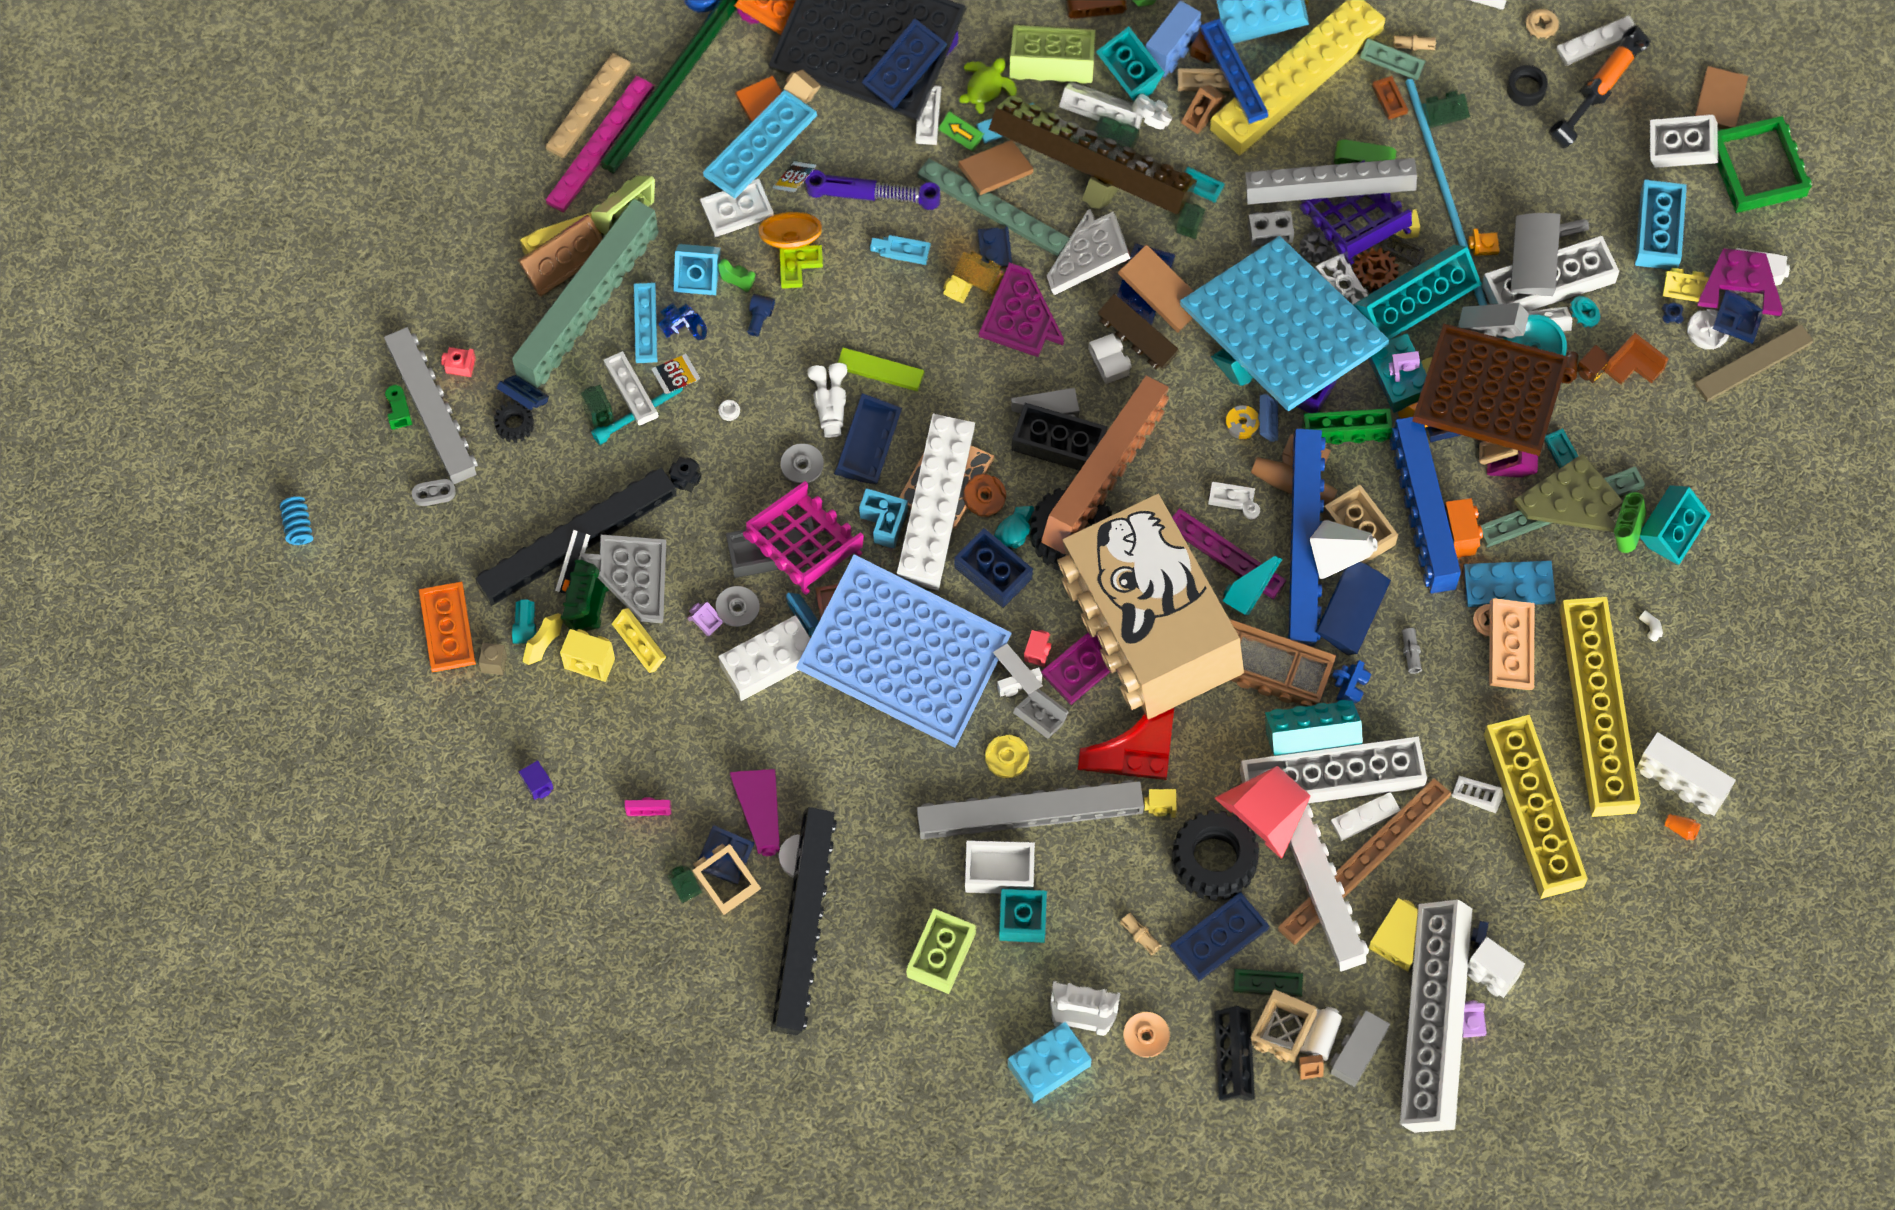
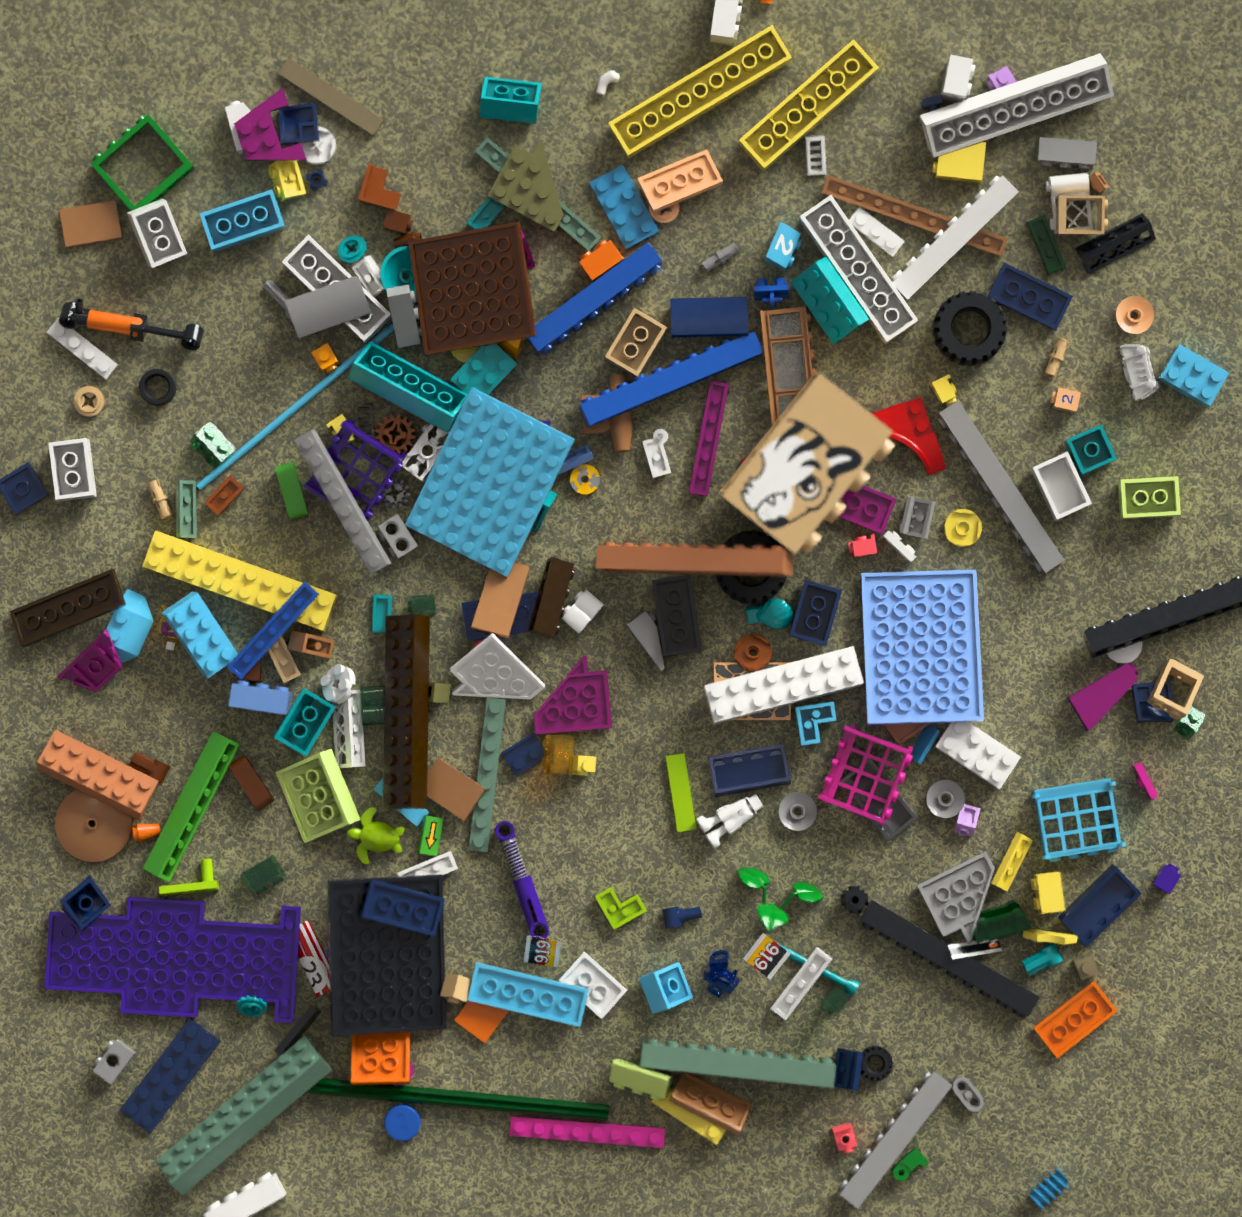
camera: 115 degrees left, 20 degrees up
(546, 704) = (1099, 905): none -> dark blue slope
(588, 105) = (556, 1161): tan plate -> none
(645, 323) = (734, 1004): medium azure plate -> none
(677, 728) = (1074, 790): none -> medium azure window
(709, 375) = (769, 914): none -> plant
(729, 410) = (777, 895): white plate -> none
(736, 275) = (655, 951): bright green piece -> none
(790, 230) = (588, 931): light orange dish -> none
(901, 249) = (564, 828): medium azure hinge -> none
(1017, 669) = (892, 551): white sticker -> none
(1089, 919) = (1065, 400): none -> light nougat brick
(1247, 590) = (733, 404): teal slope -> none
(1269, 806) = (916, 303): coral wedge -> none
(1340, 547) = (673, 345): white slope -> none
(1351, 425) = (552, 391): green brick -> none
(1393, 710) = (783, 246): none -> medium azure slope
(1405, 362) = (482, 365): lavender bracket -> none
(1630, 522) = (537, 127): bright green beam -> none

